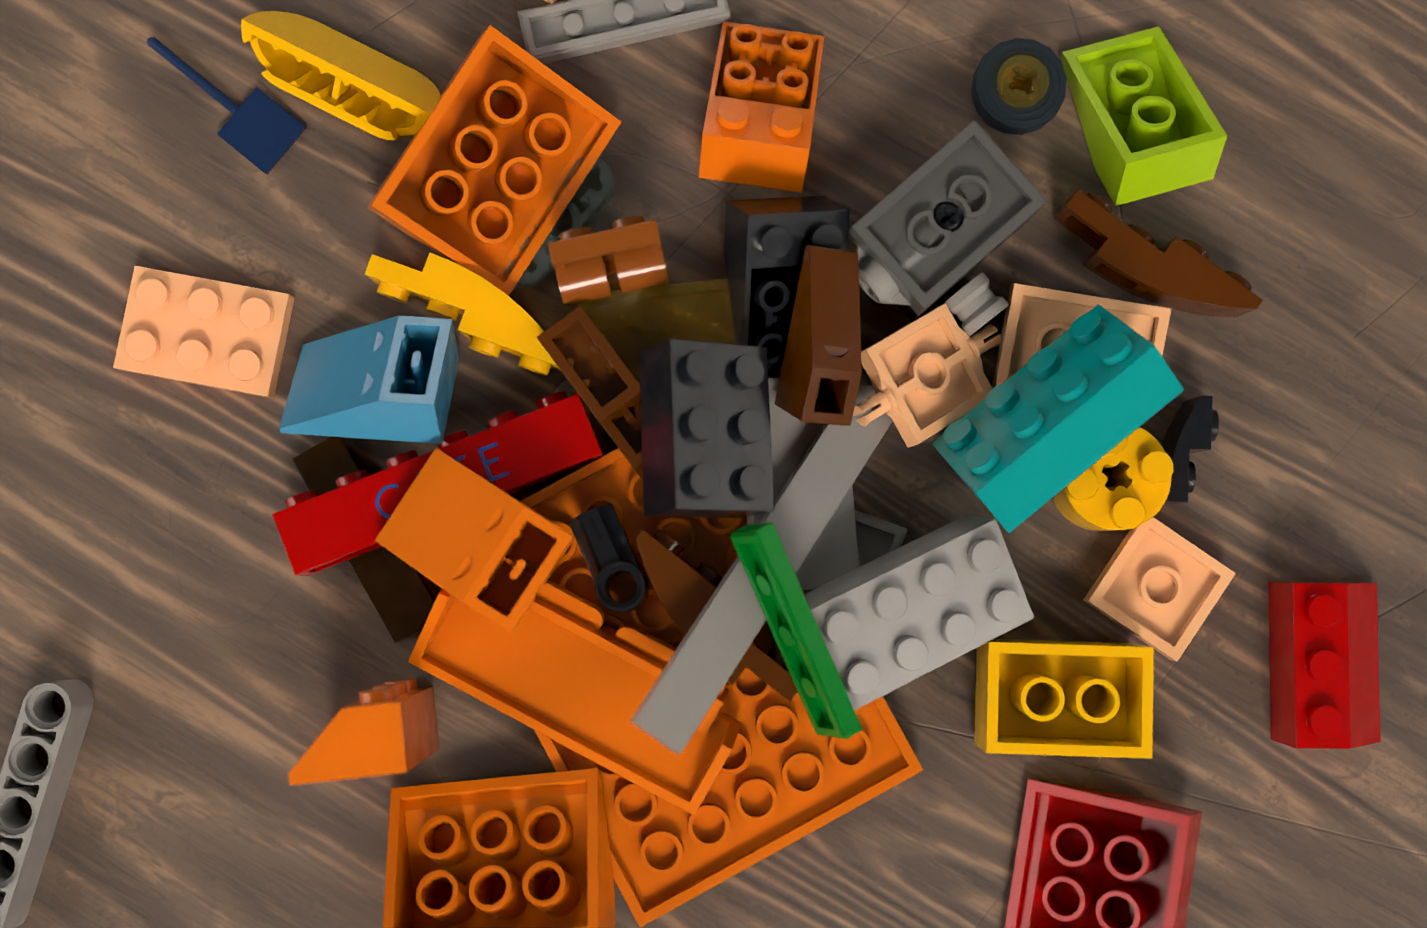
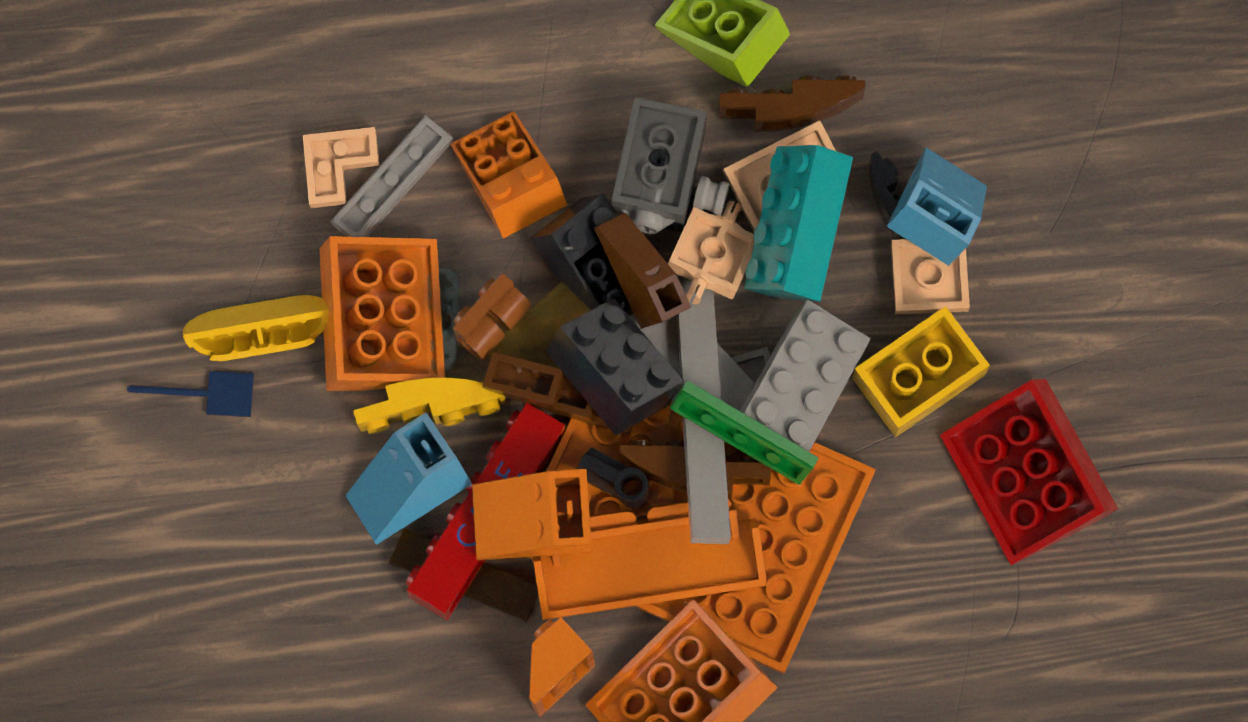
camera: 30 degrees left, 10 degrees down
(204, 332) = (282, 530): light nougat plate -> none
(1004, 101) = (642, 74): black wheel -> none
(1140, 488) = (870, 220): yellow brick -> none
(1234, 524) = (939, 208): none -> dark azure slope
(1324, 664) = (1052, 249): red slope -> none

